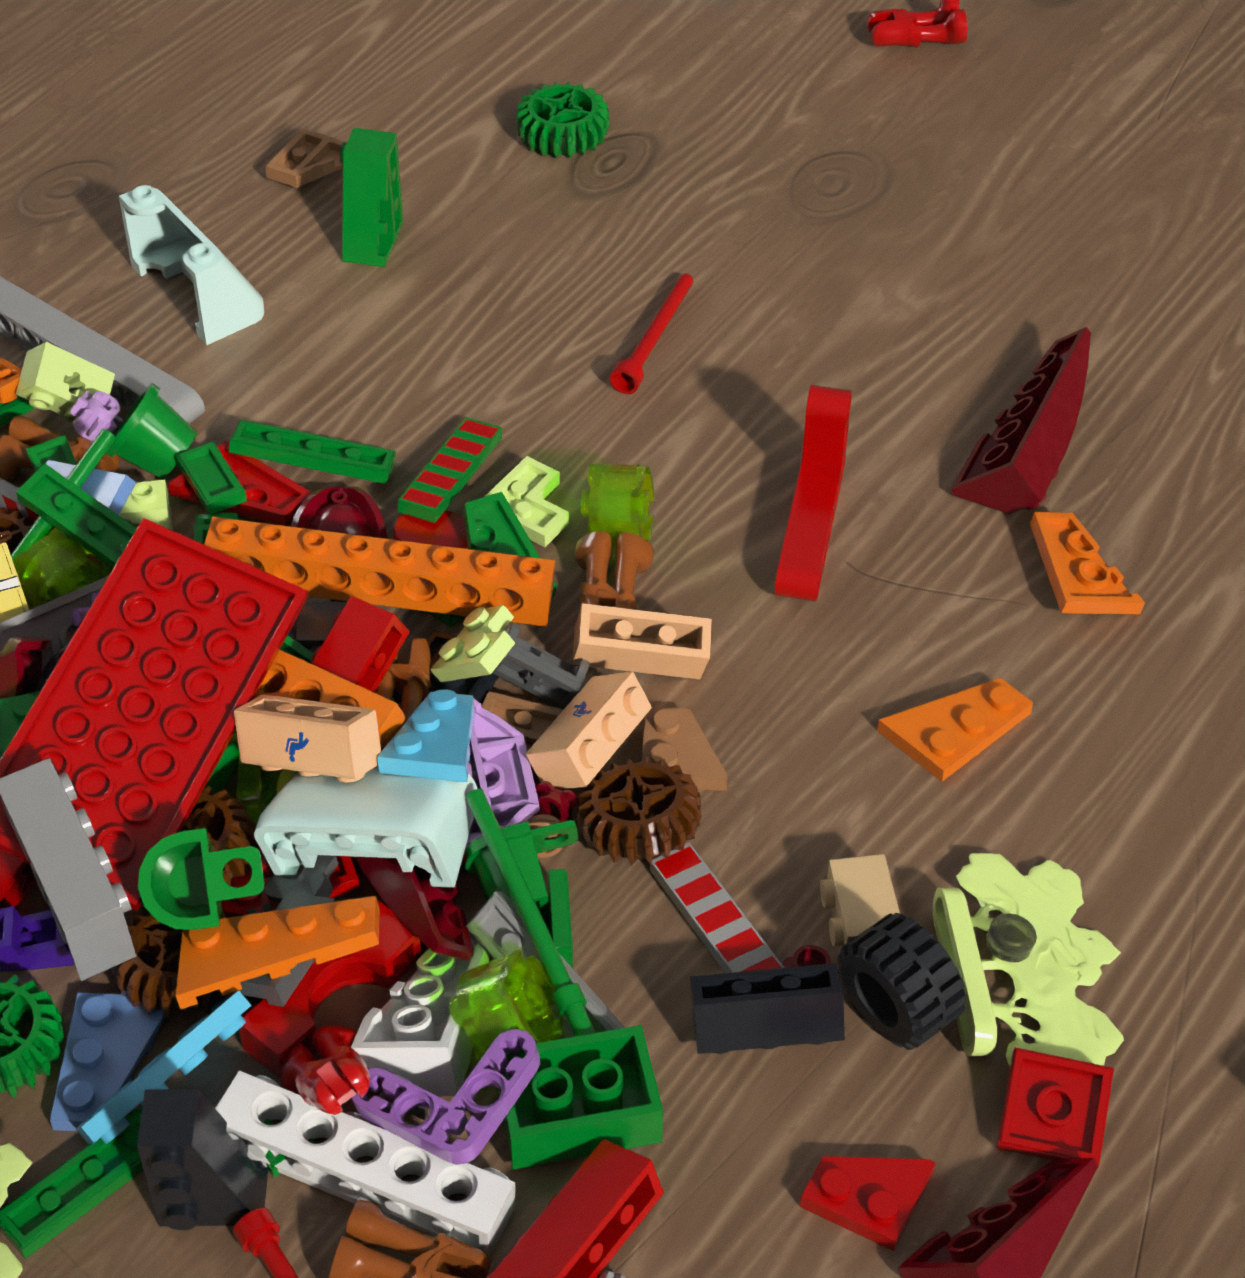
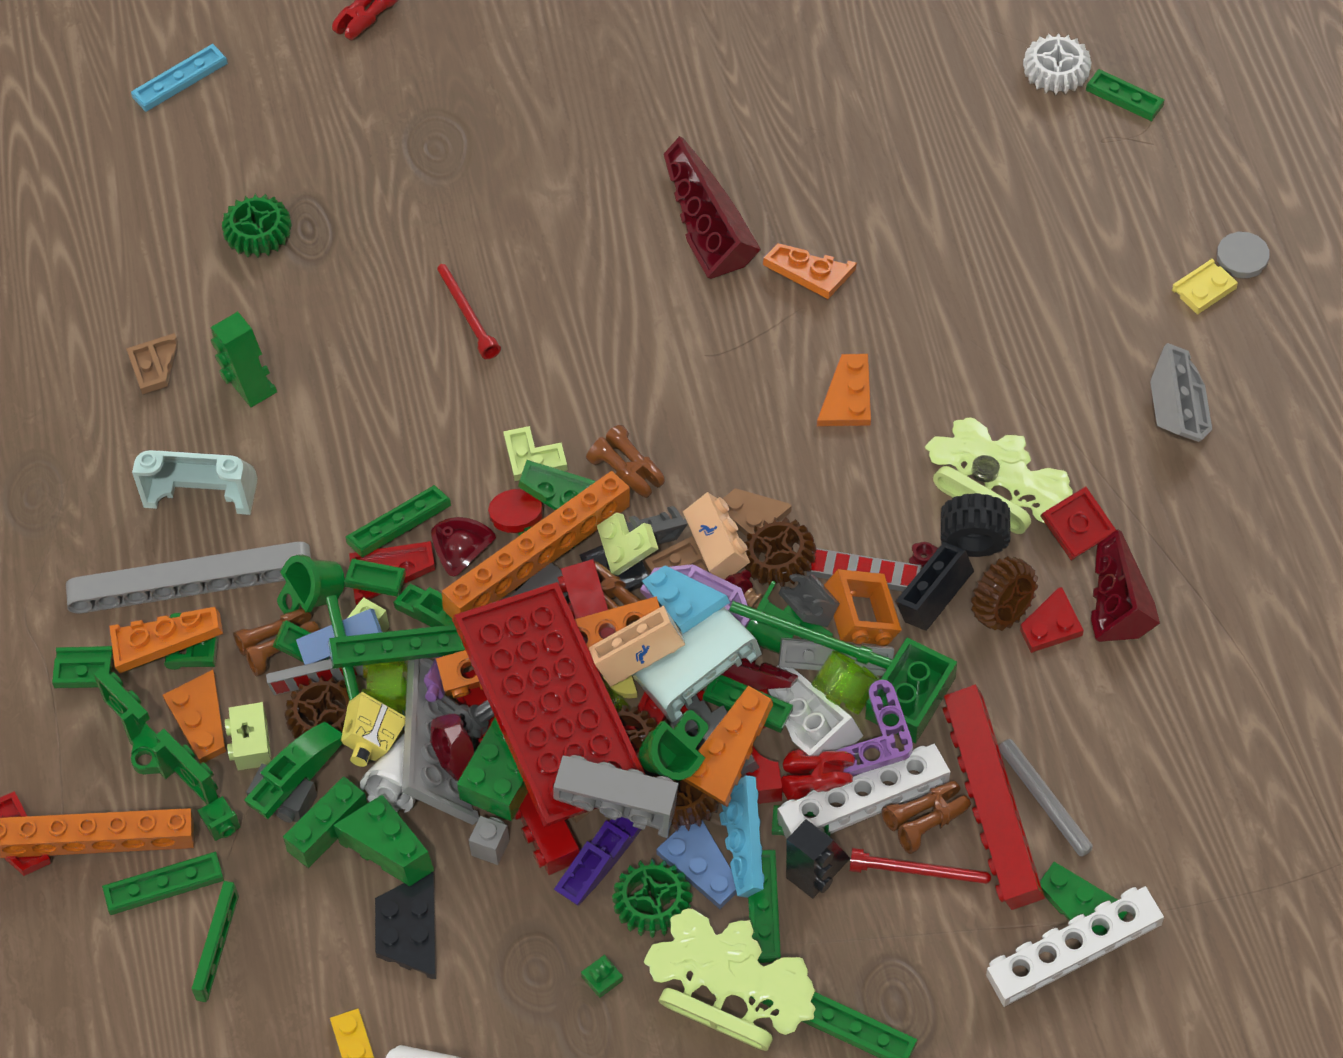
camera: 45 degrees left, 10 degrees up
(57, 379) = (239, 597): yellowish green brick -> none
(95, 414) = (279, 597): lavender gear -> none
(384, 964) = (727, 691): none -> green tile
(449, 470) = (476, 470): tile -> none
(595, 889) = (810, 600): none -> dark grey hinge
(619, 500) = (584, 417): clear neon green brick -> none
(642, 641) = (683, 475): light nougat brick -> none
(674, 920) = (849, 583): none -> orange window
(815, 493) = (661, 338): red beam -> none
(834, 1091) = (1004, 593): none -> reddish brown gear
(858, 895) = (914, 510): tan brick -> none

